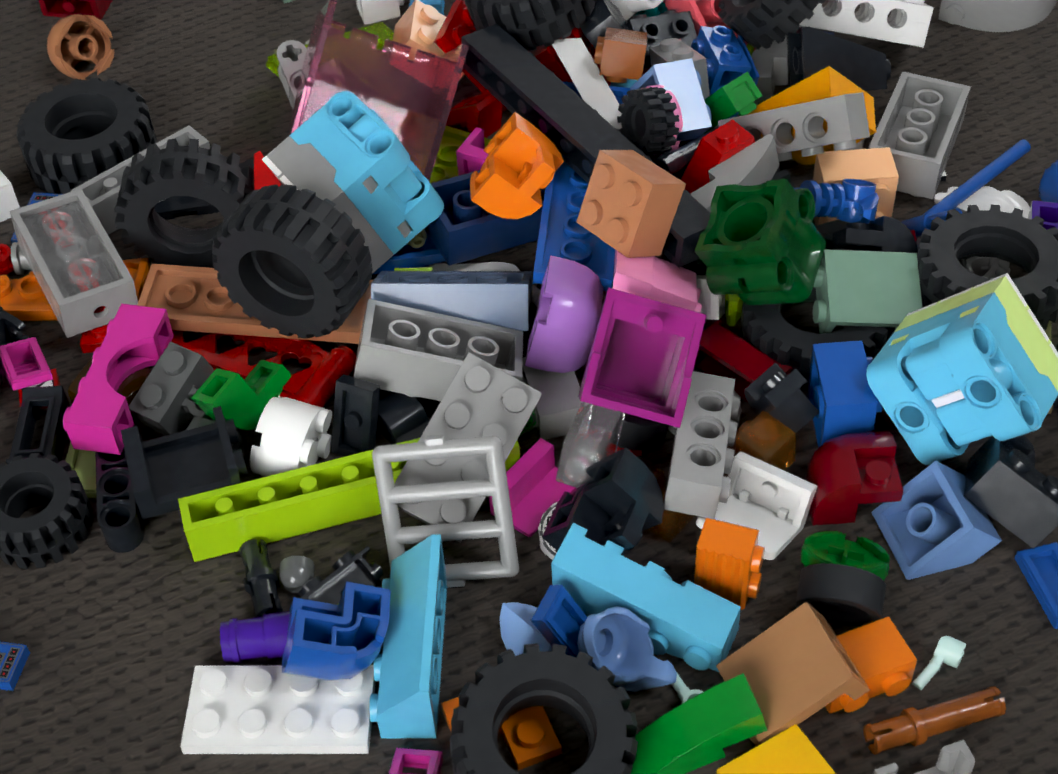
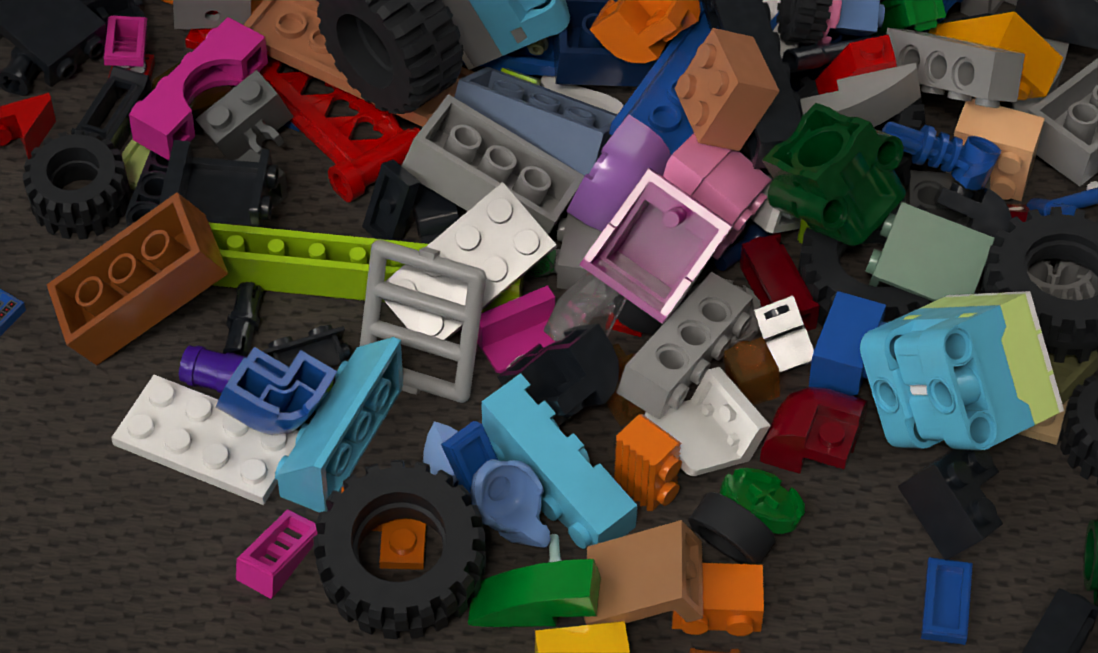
camera: 20 degrees right, 5 degrees up
(140, 577) = (136, 279): none -> dark orange brick
(239, 397) = (297, 152): green brick -> none
(291, 436) = (325, 200): white brick -> none
(296, 572) = (275, 326): dark grey hinge -> none
(935, 524) = (863, 502): medium blue slope -> none
(947, 651) = (805, 617): light aqua hand -> none

